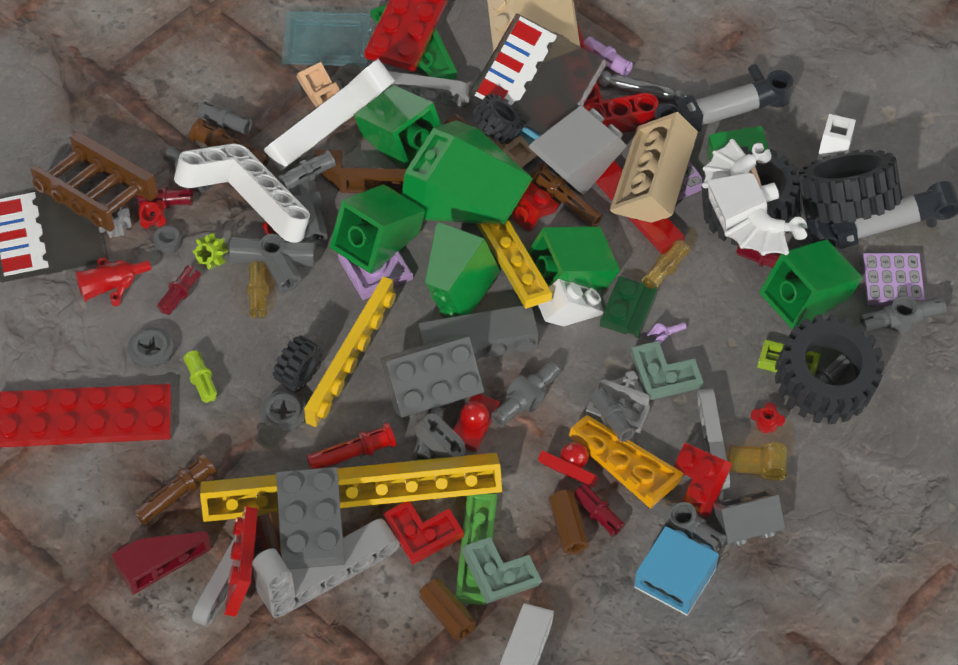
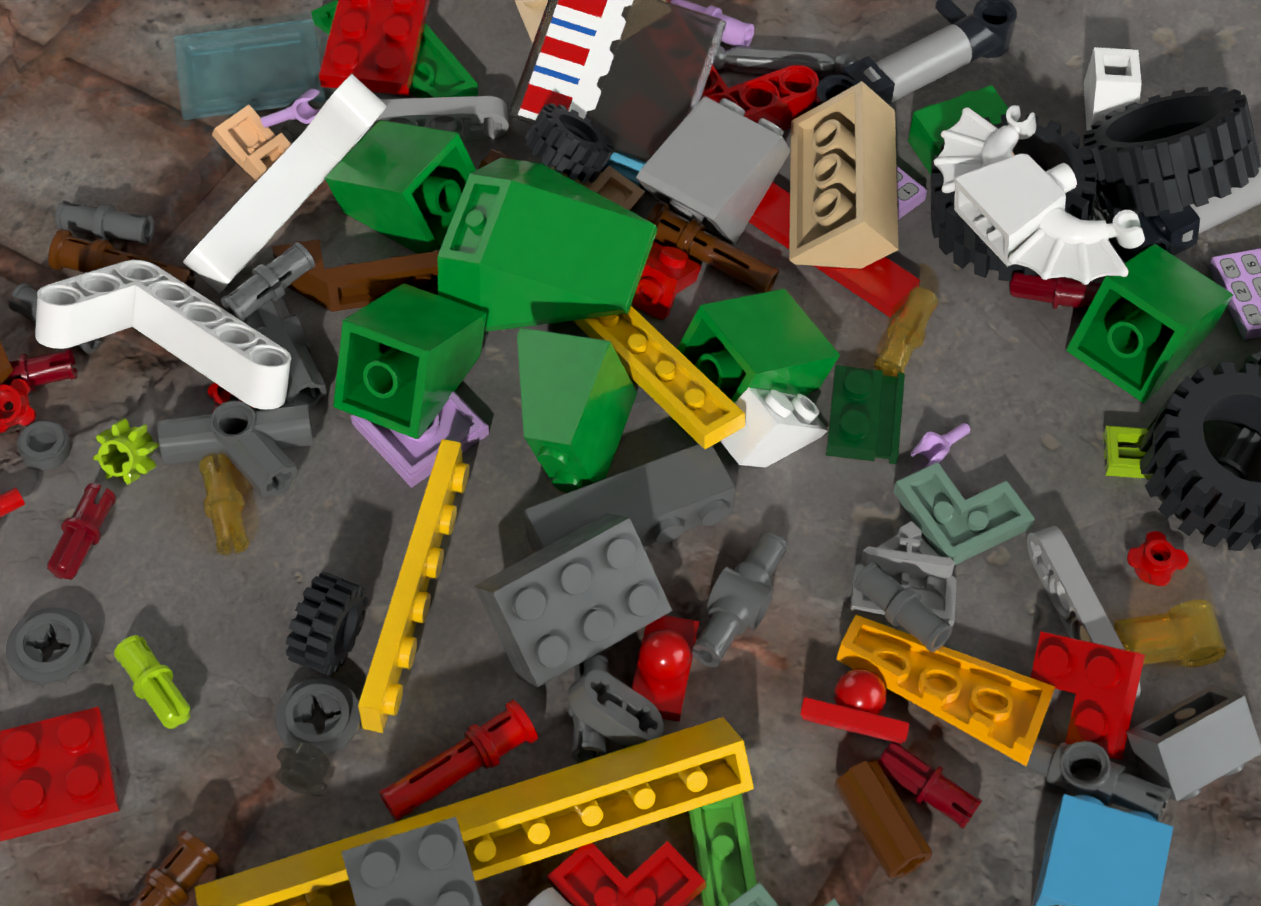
camera: 15 degrees left, 0 degrees up
(349, 70) = (299, 110): none -> lavender hand

